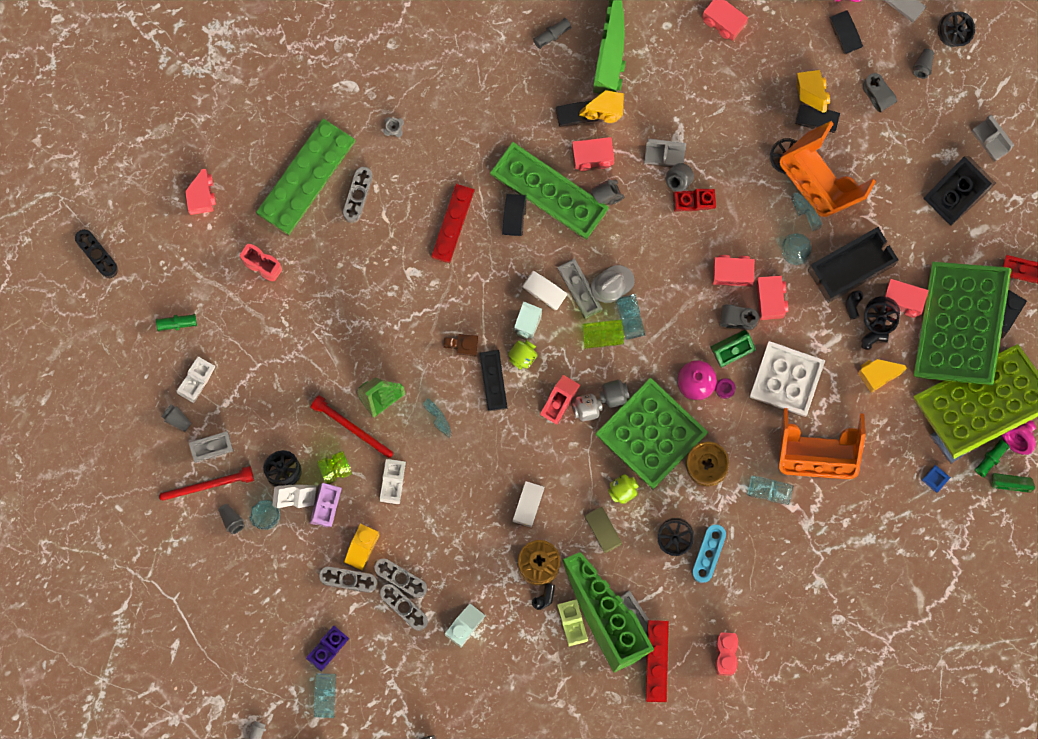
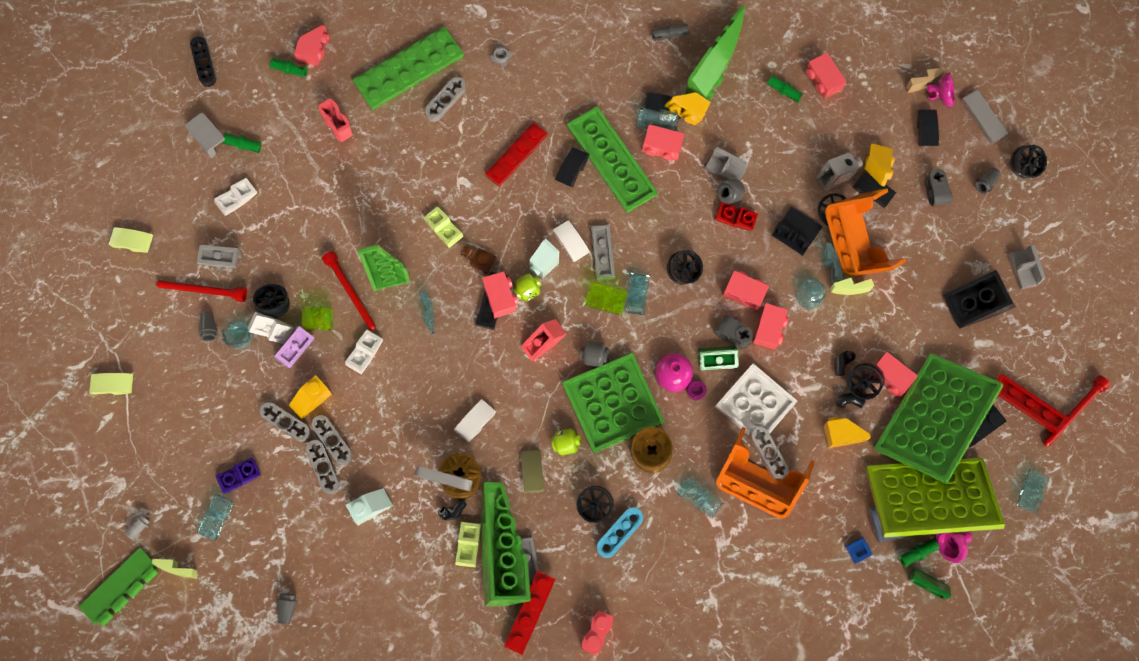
camera: 20 degrees right, 5 degrees down
(114, 464) = (130, 239): none -> yellowish green slope
(137, 328) = (204, 133): none -> light grey panel
(164, 611) = (111, 383): none -> yellowish green slope
(176, 418) = (202, 221): dark grey cone -> none
(186, 225) = (288, 67): none -> green pin
(413, 326) = (443, 227): none -> yellowish green slope
(500, 373) = (499, 294): none -> coral brick
(527, 571) = (443, 478): none -> light grey beam
(583, 130) = (662, 119): none -> clear light blue slope
(587, 407) = (564, 356): light grey head -> none
(608, 192) = (662, 179): dark grey piece -> none
(612, 284) = (633, 259): light grey piece -> none
(666, 272) = (684, 267): none -> black wheel
(690, 47) = (785, 89): none -> green pin
(759, 190) = (797, 231): none -> black hinge
(776, 113) = (838, 170): none -> light grey torso
(825, 420) = (776, 454): none -> light grey beam
(830, 228) = (847, 287): none -> yellowish green slope
(853, 265) = (856, 326): black piece -> none

